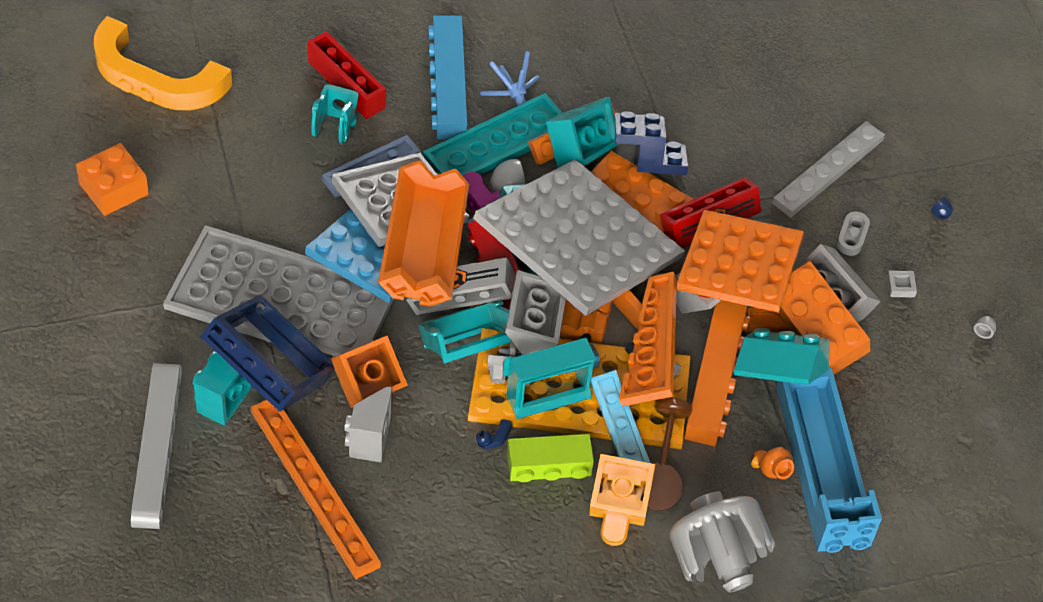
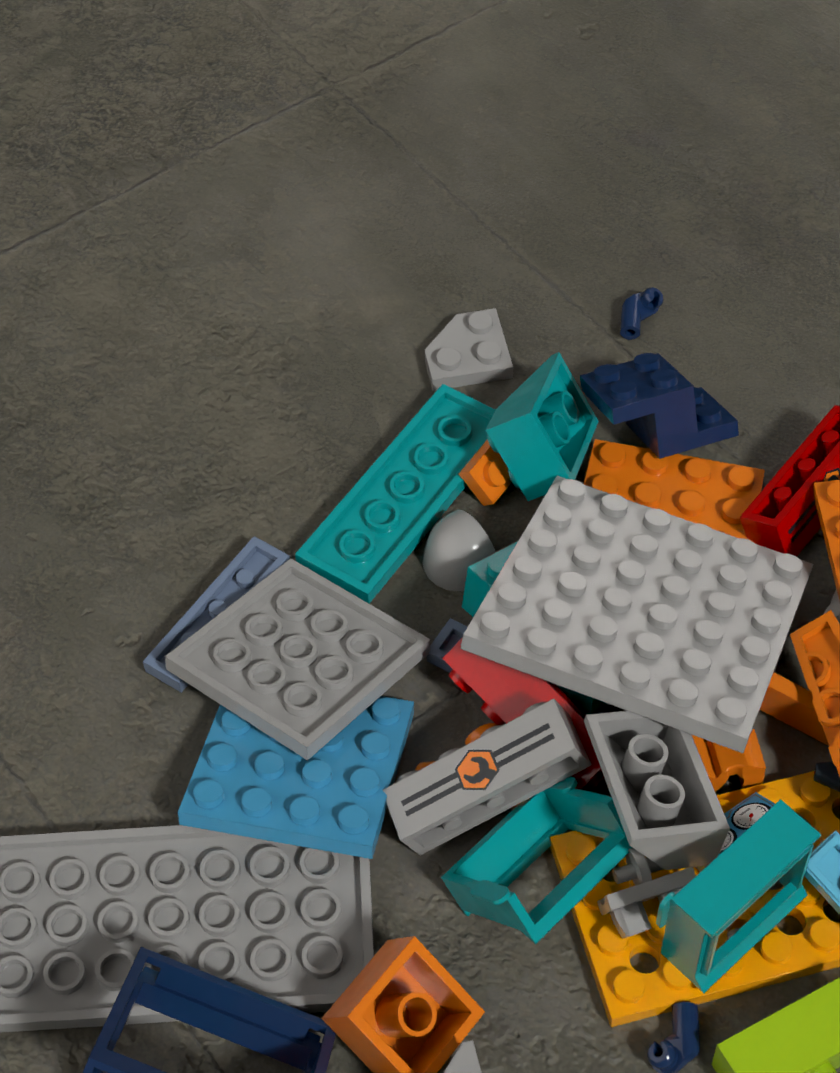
camera: 15 degrees left, 0 degrees up
(326, 106) = (99, 536): teal piece -> none
(346, 72) = (107, 471): red brick -> none
(424, 234) = (385, 713): orange panel -> none
(449, 76) = (276, 415): dark azure brick -> none
(478, 194) = (421, 596): magenta leg -> none
(515, 90) = (395, 395): medium blue plant -> none
(570, 81) = (469, 351): none -> light grey plate
(675, 91) = (637, 309): none -> dark blue arm

